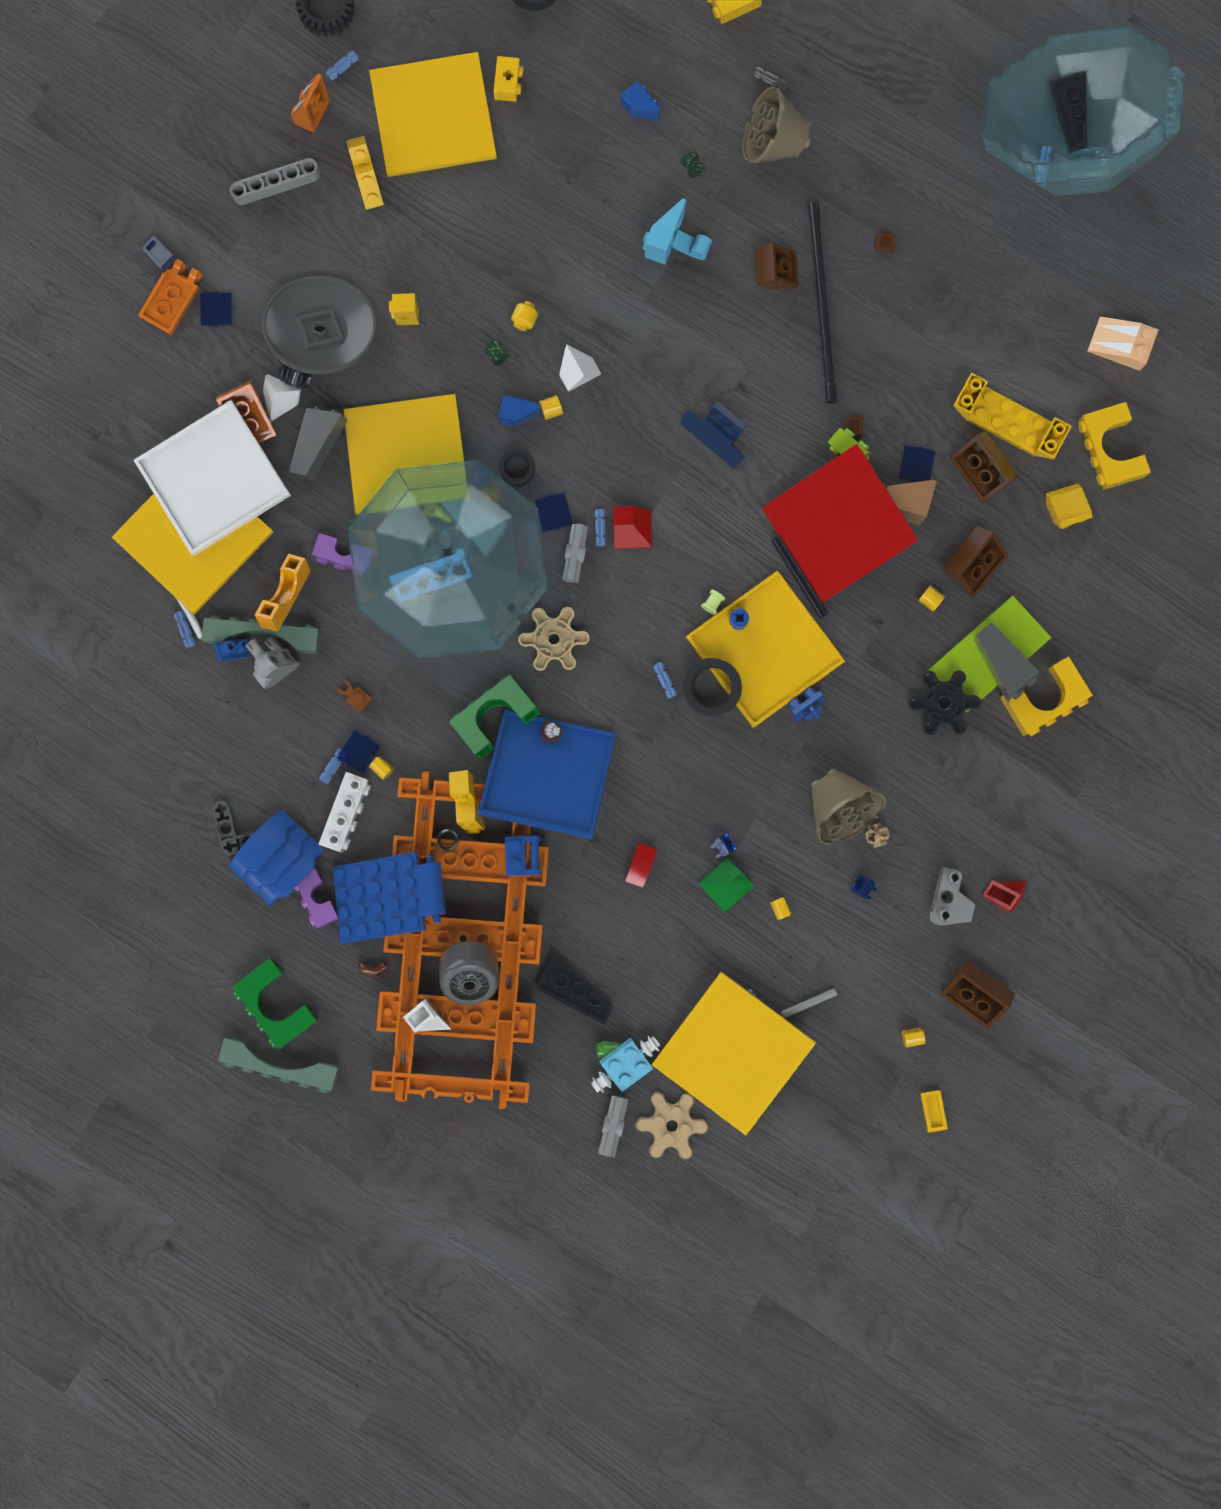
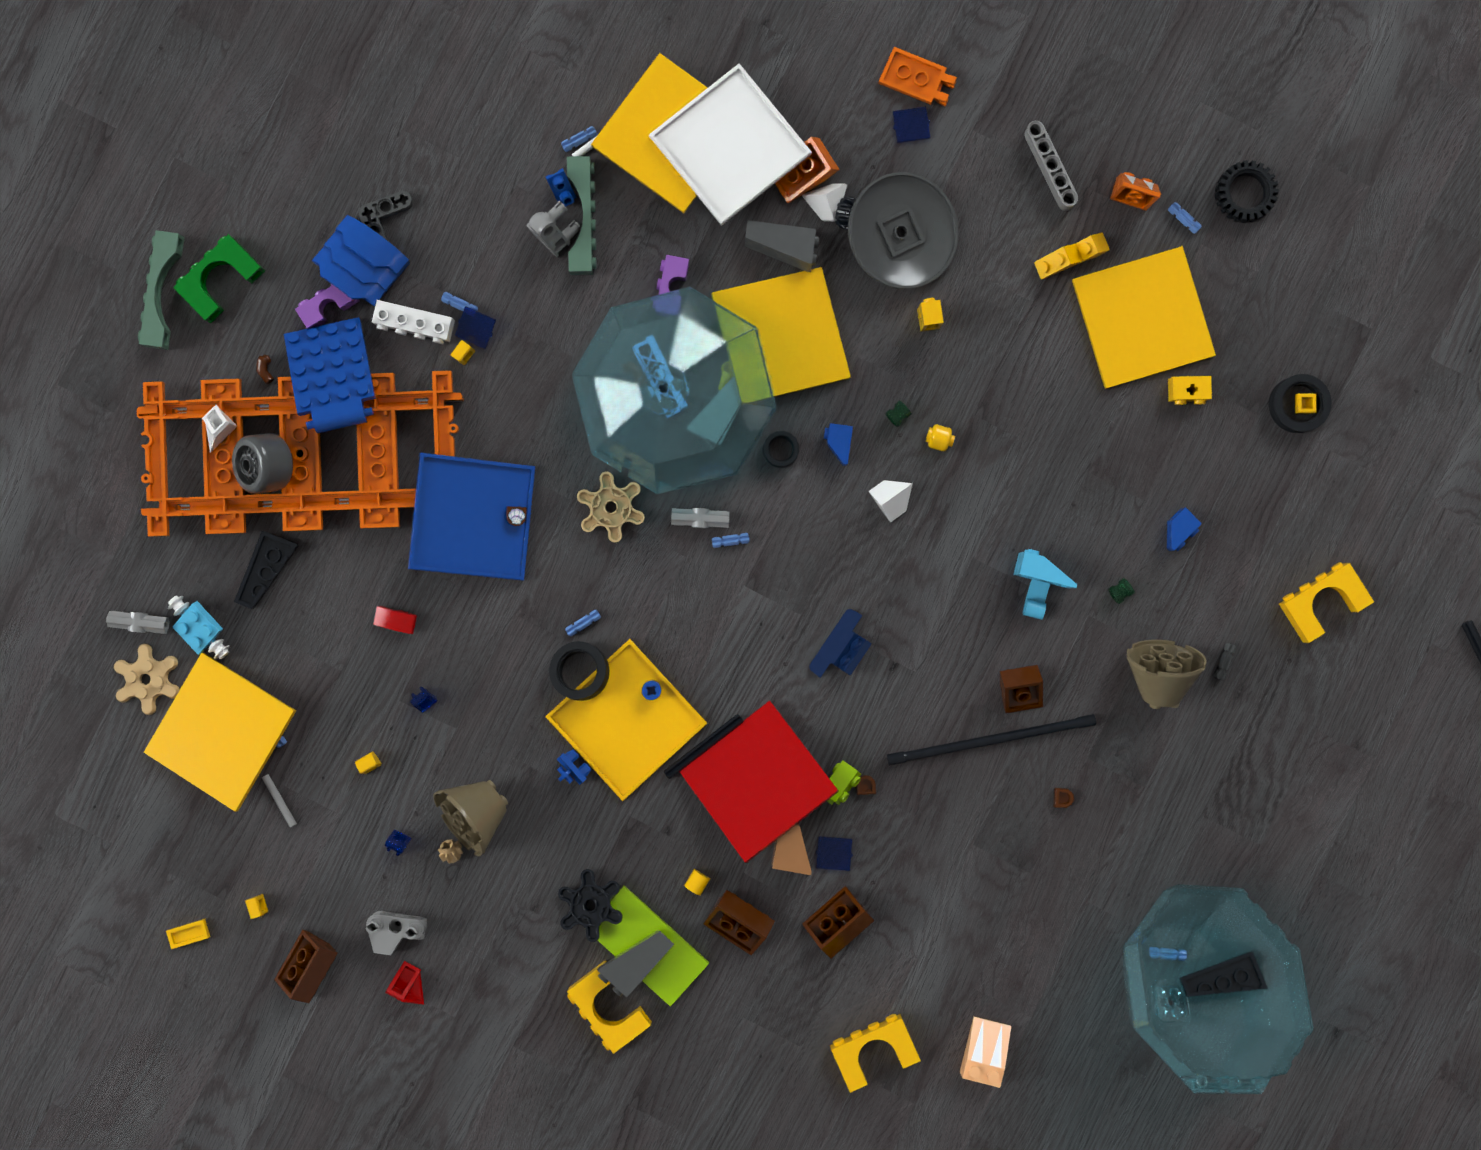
camera: 85 degrees right, 5 degrees up
(159, 253) = (960, 58): dark blue tile -> none
(292, 578) = (639, 238): light orange arch -> none
(356, 697) = (530, 318): dark orange plate -> none
(447, 831) = (386, 421): black piece -> none
(466, 804) = (427, 441): yellow arch -> none
(506, 694) = (516, 432): green arch -> none
(516, 856) = (385, 495): blue plate -> none
(551, 407) = (848, 475): yellow brick -> none
(553, 512) = (741, 491): clear blue piece -> none
(605, 1048) = (212, 606): bright green cone -> none
(632, 527) = (733, 572): red slope -> none
(713, 602) = (666, 662): yellowish green bush -> none
(726, 885) = (385, 707): green slope -> none
(1010, 420) = (890, 945): yellow slope -> none
(1068, 506) = (808, 1011): yellow slope -> none

